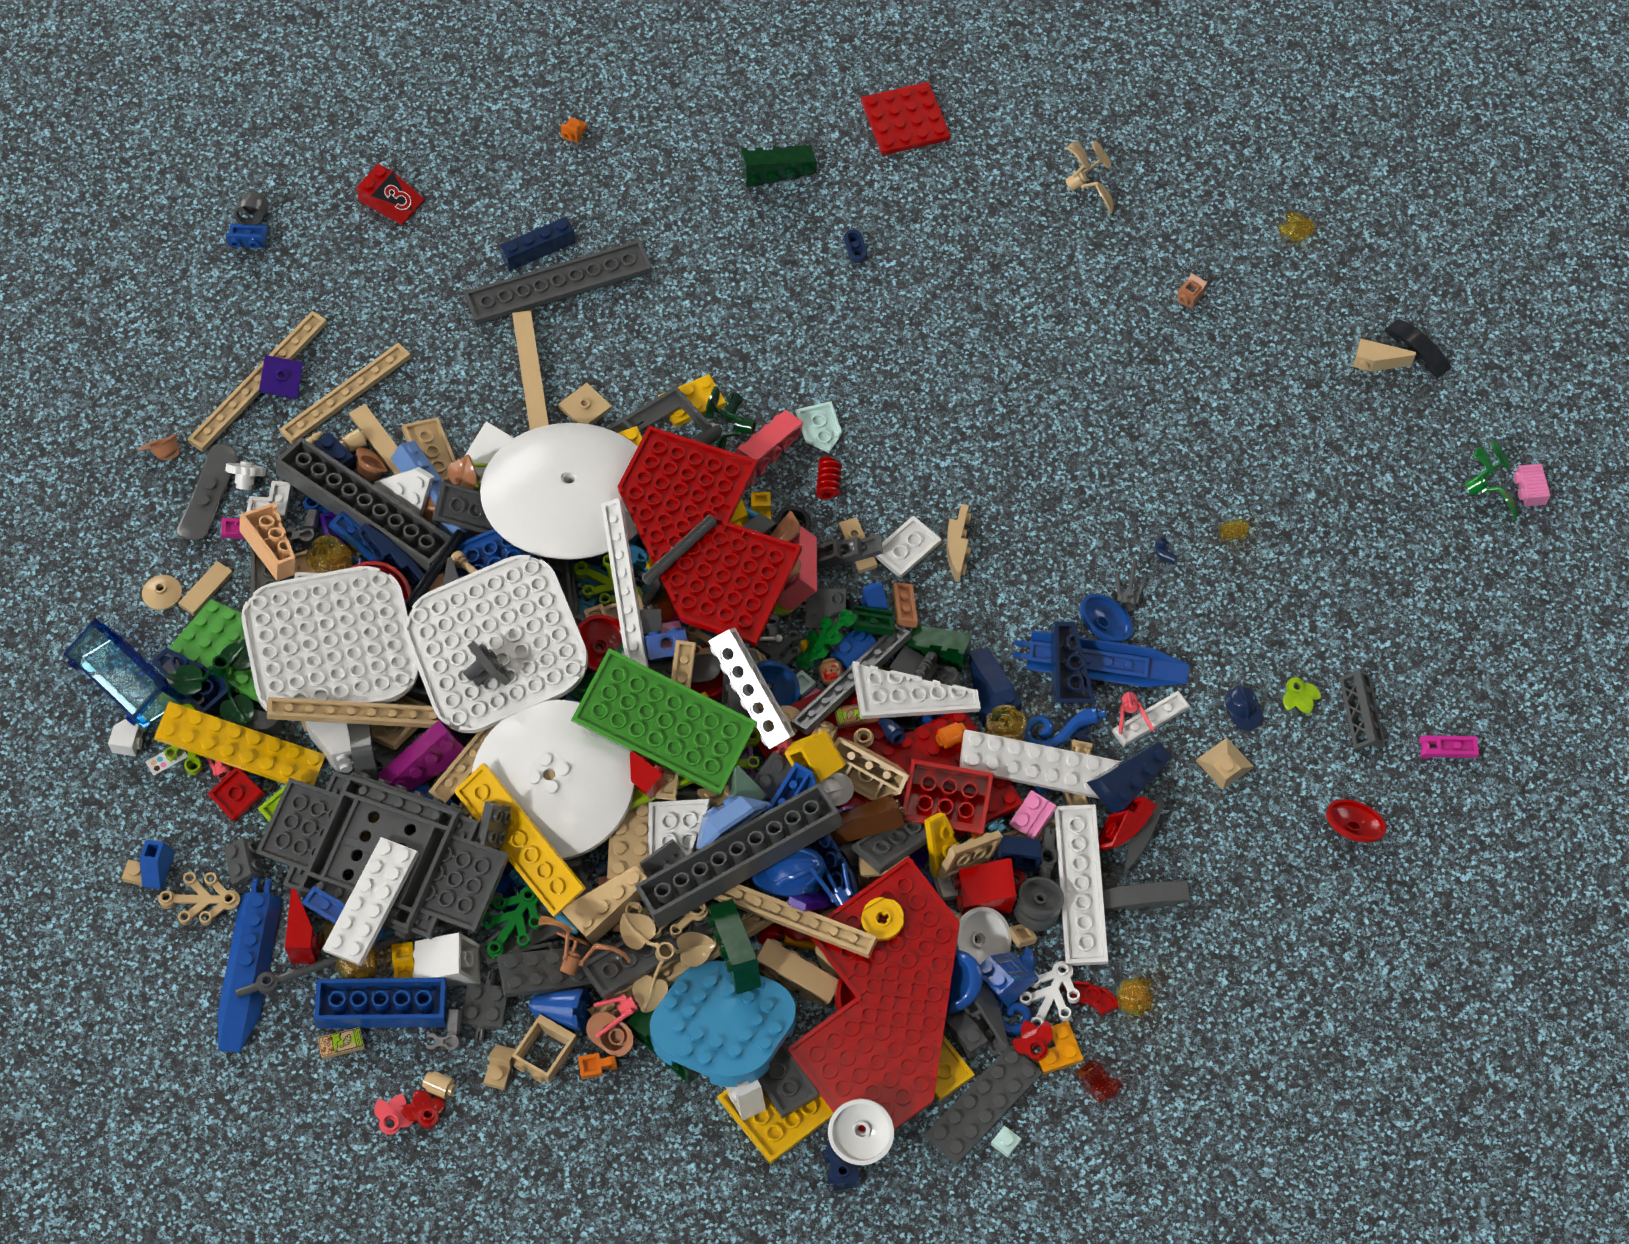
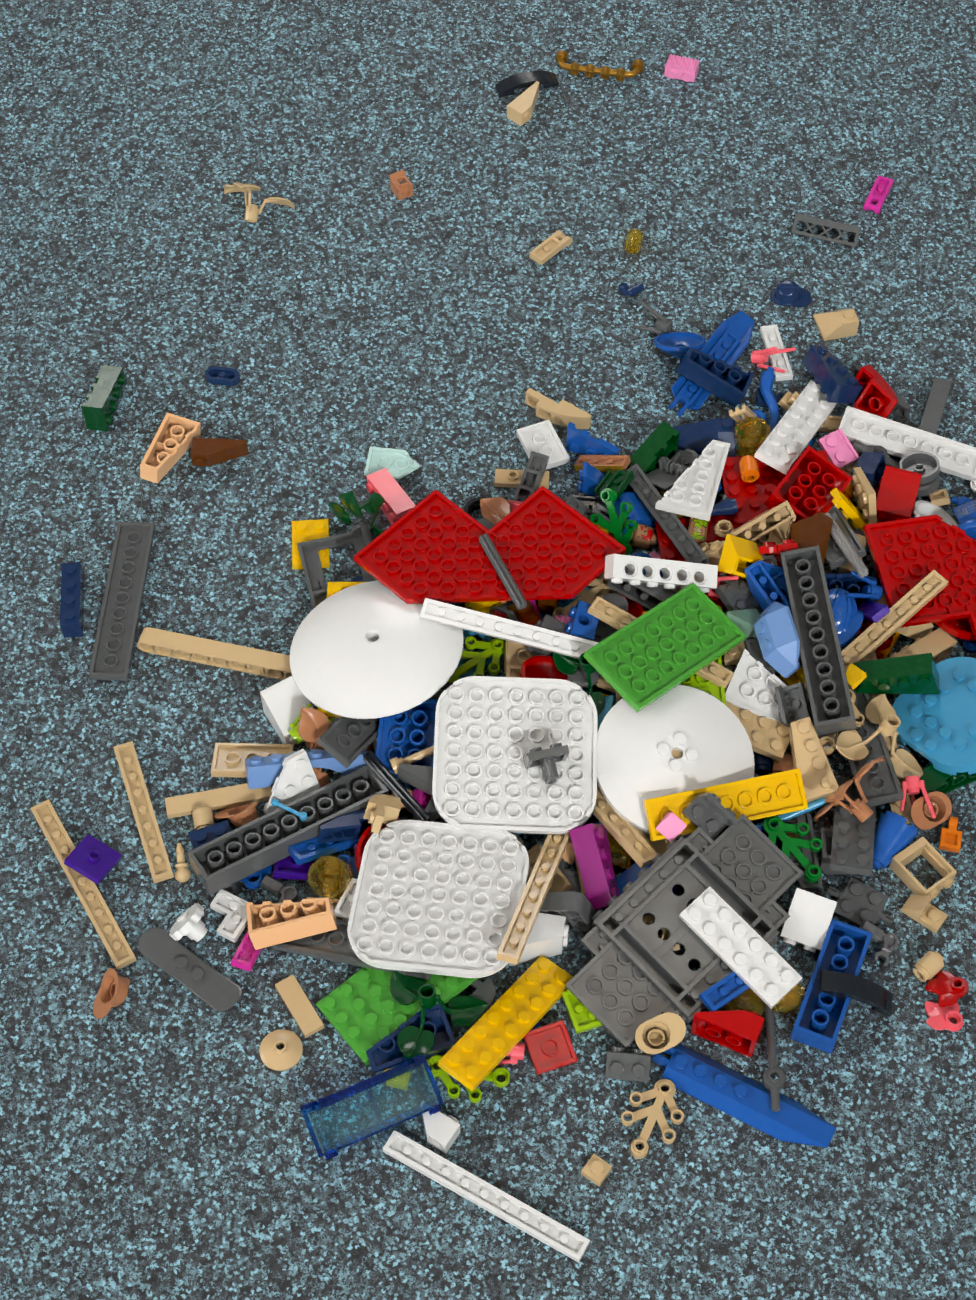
camera: 65 degrees left, 5 degrees down
(80, 795) = (486, 1196): none -> white plate
(155, 863) = (602, 1144): blue slope -> none
(160, 762) = (478, 1111): white sticker -> none
(267, 869) = (660, 1033): none -> tan piece
(341, 1043) = (854, 1038): tile -> none
(373, 507) = (303, 815): none -> dark azure hinge
(377, 1024) = (856, 988): none -> black slope
(403, 960) = (799, 960): yellow slope -> none
(404, 564) = (382, 809): none -> tan brick
(470, 797) = (670, 826): none -> bright pink slope
(585, 405) = (270, 624): tan plate -> none
(644, 776) = (710, 681): red slope -> none
(712, 904) = (854, 676): none -> yellow tile
(742, 239) = (168, 446): none -> light nougat wedge
(758, 278) = (215, 451): none -> reddish brown slope
(828, 478) = (448, 473): red piece -> none
(839, 787) = (771, 548): none -> red plate
(878, 847) = (847, 549): none -> light grey axle
(885, 907) = (907, 570): yellow plate -> none
(905, 118) = (111, 300): red plate -> none
(922, 591) = (584, 444): none -> blue wing
(1024, 707) = (744, 412): none -> tan tile
(1183, 457) = (550, 247): none -> tan plate
(1296, 227) = (378, 107): clear yellow plate -> none
(1300, 698) = (796, 259): lime plate -> none
(1356, 821) = (923, 264): red dish -> none
(1480, 482) = (666, 94): green plant -> none
(1481, 412) = (605, 71): none -> pearl gold bar

